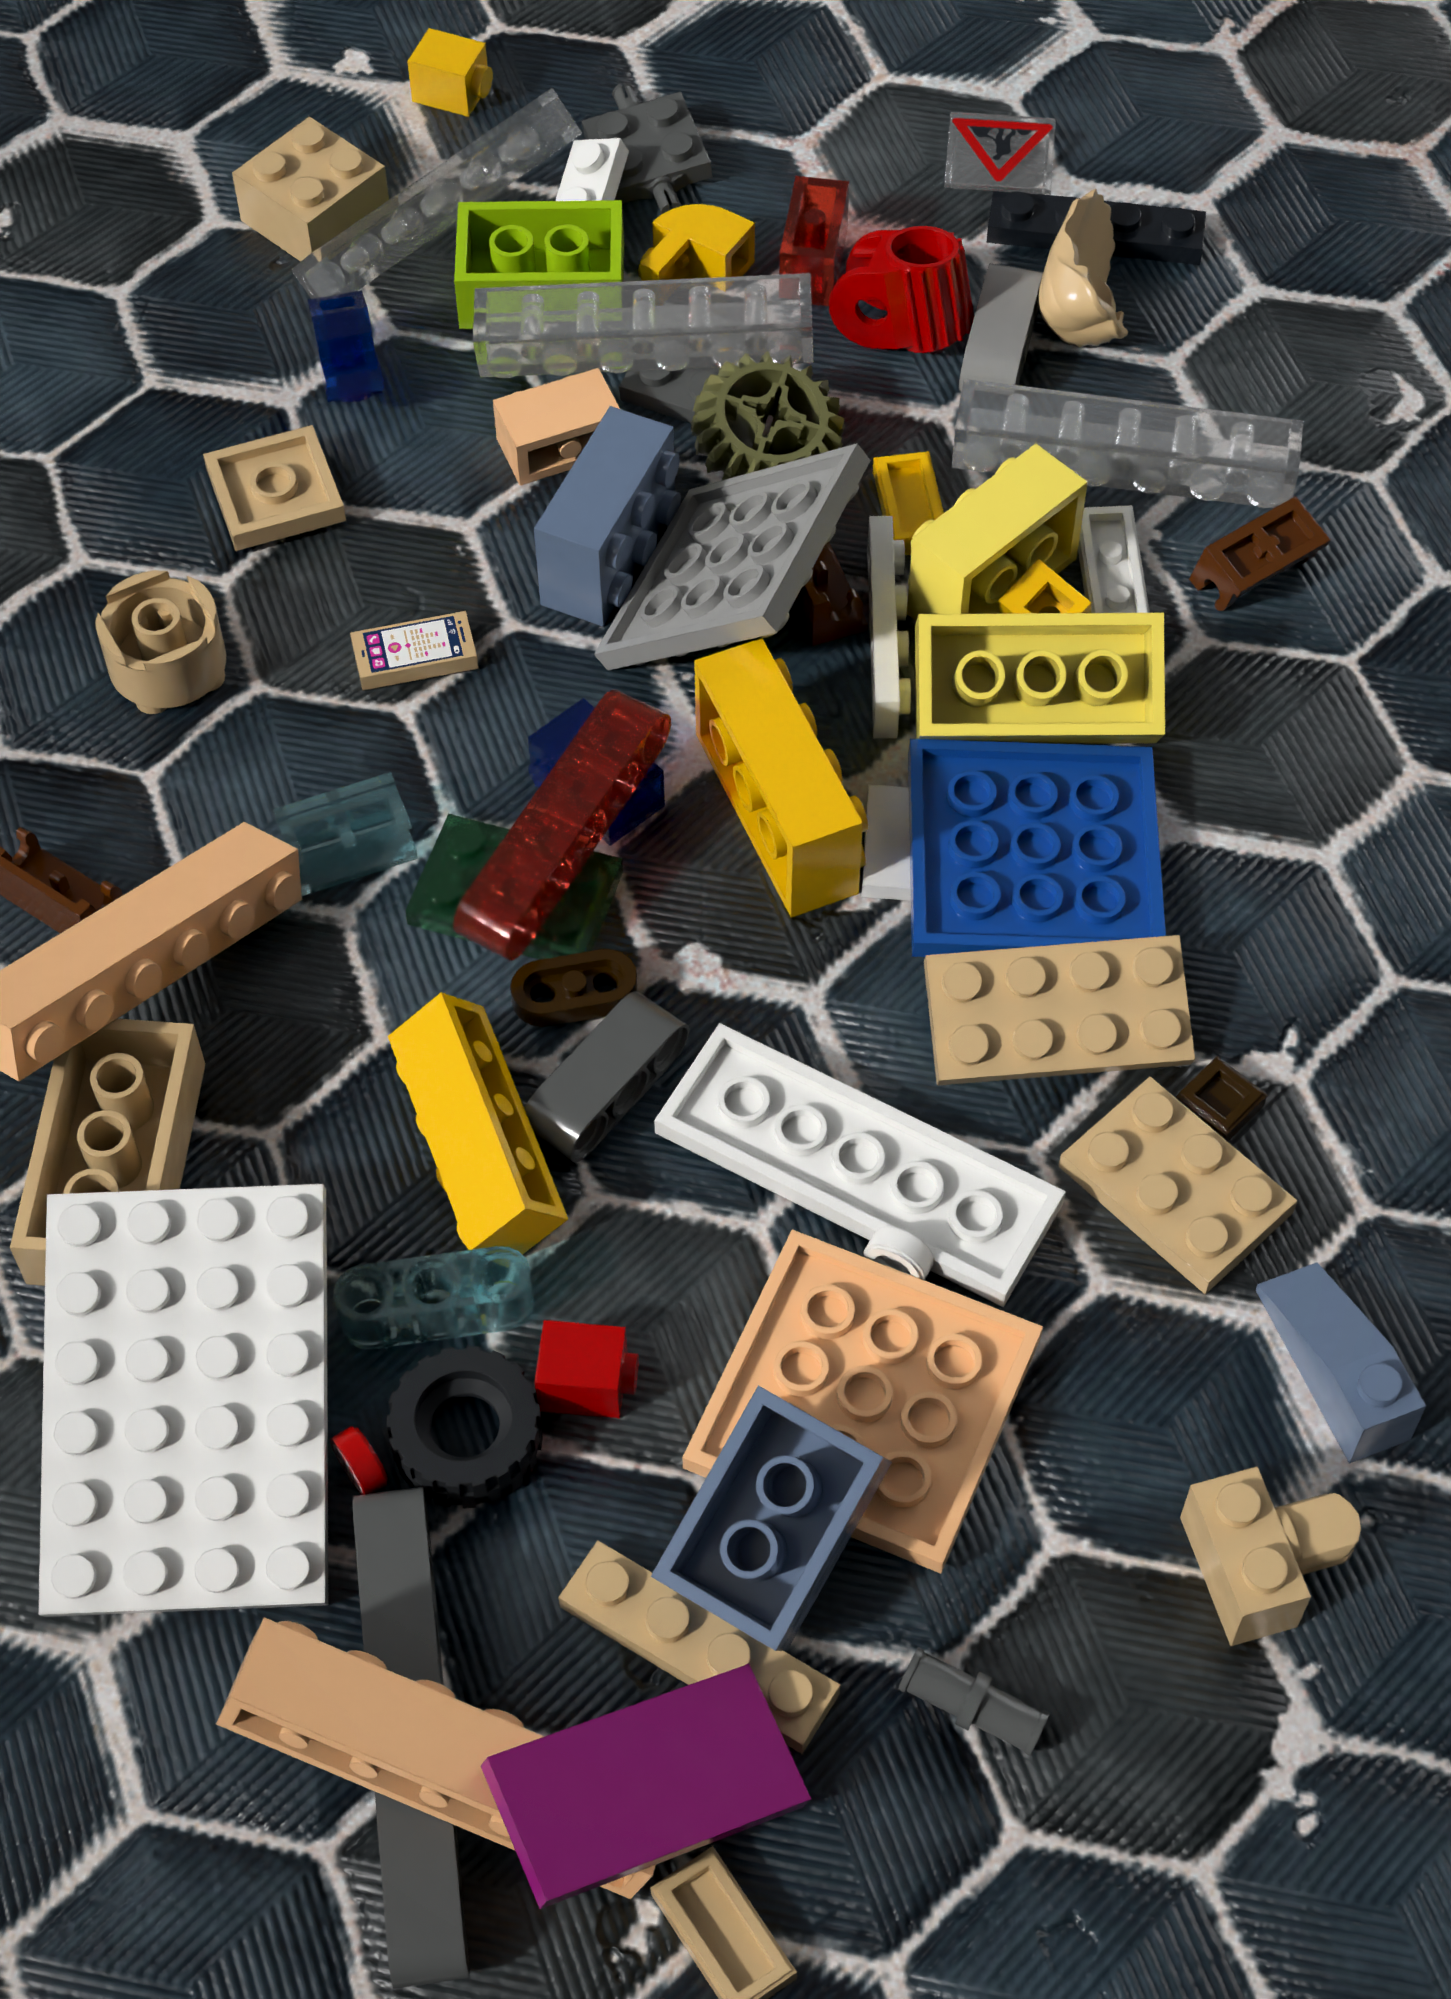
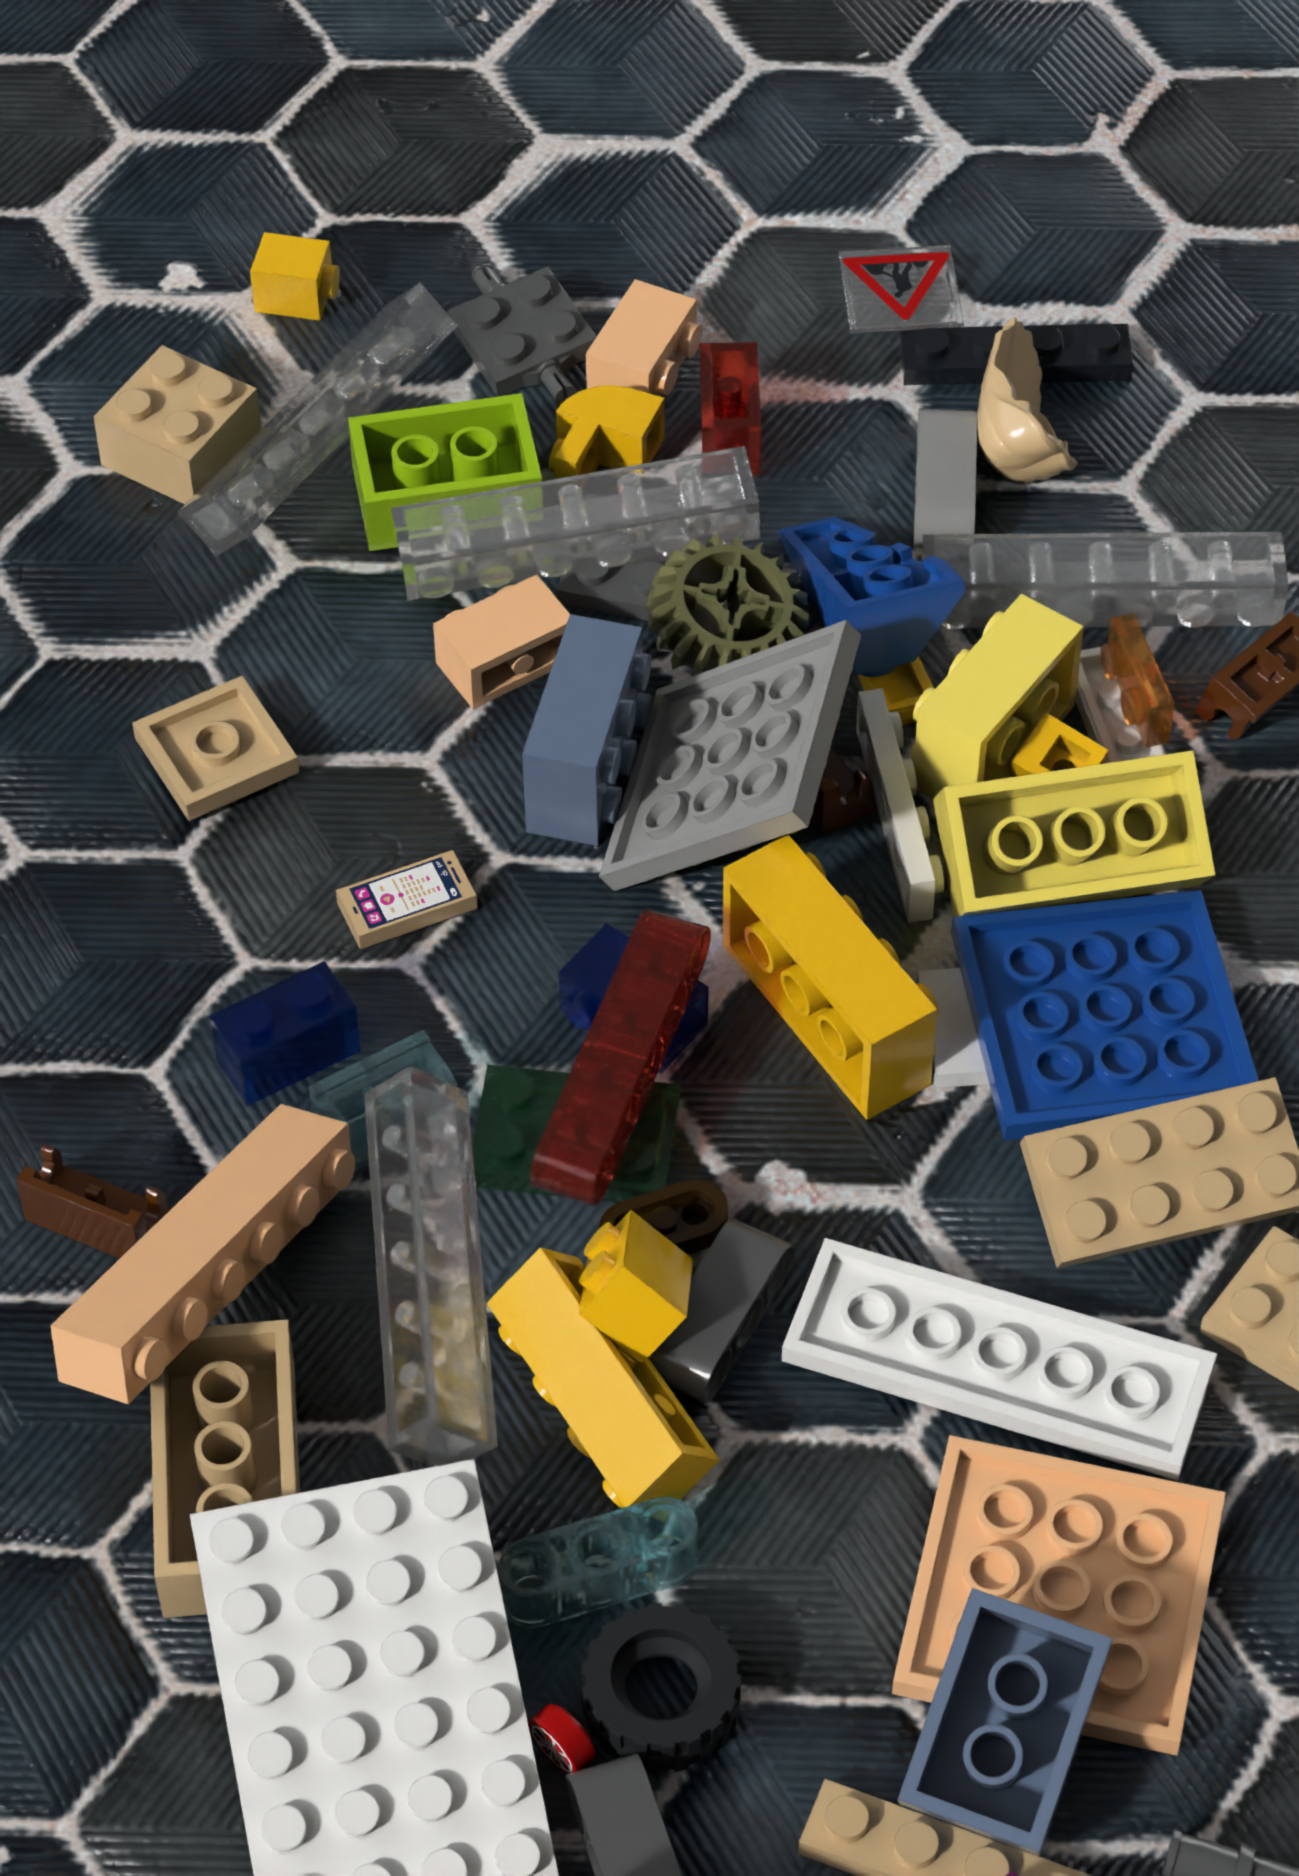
camera: 10 degrees left, 5 degrees down
(161, 640) = (141, 927): tan brick -> none
(269, 757) = (285, 1033): none -> clear blue brick
(341, 999) = (429, 1270): none -> clear brick
(345, 347) = (259, 588): clear blue brick -> none
(523, 1041) = (635, 1285): none -> yellow brick
(584, 1369) = (772, 1609): red brick -> none
(593, 170) = (475, 365): white plate -> none
(752, 169) = (645, 340): none -> light nougat brick
(900, 1251) = (1064, 1439): white tile -> none
(905, 426) = (874, 587): none -> blue wedge
(915, 278) = (851, 436): red piece -> none
(1138, 556) = (1142, 687): none -> clear orange plate

